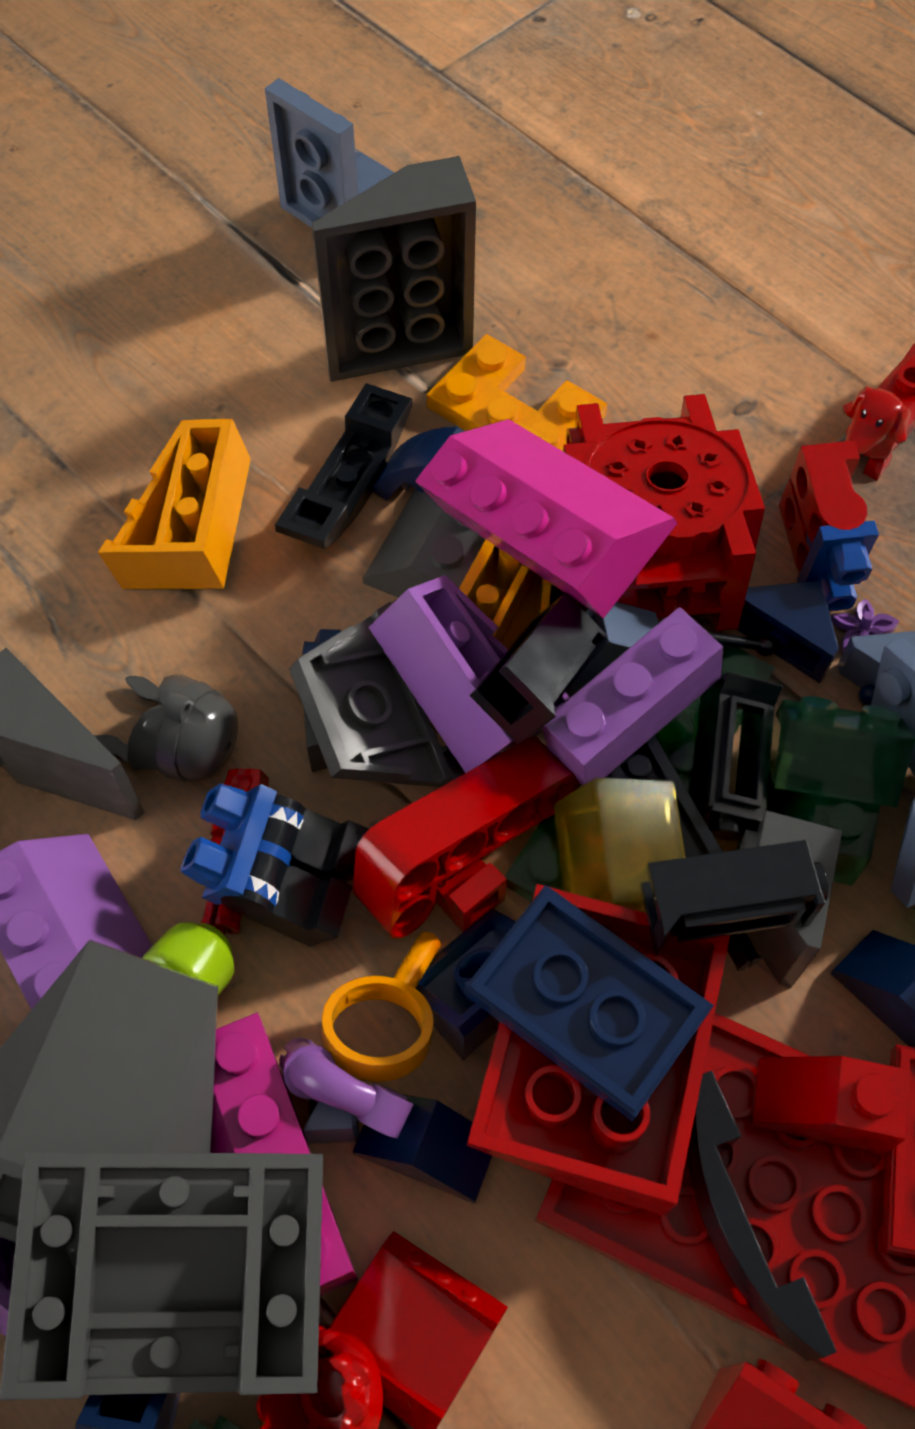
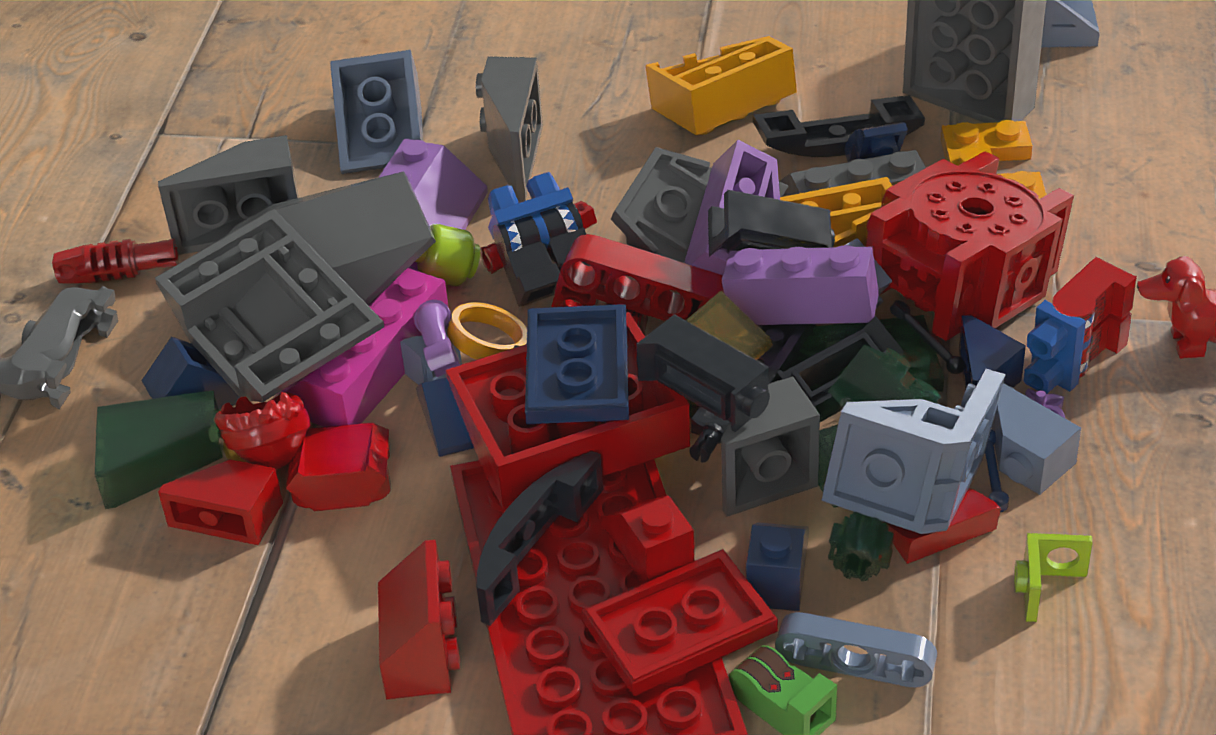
camera: 55 degrees right, 20 degrees down
(184, 735) = (583, 161): dark grey hair -> none
(547, 511) = (868, 164): dark pink slope -> none

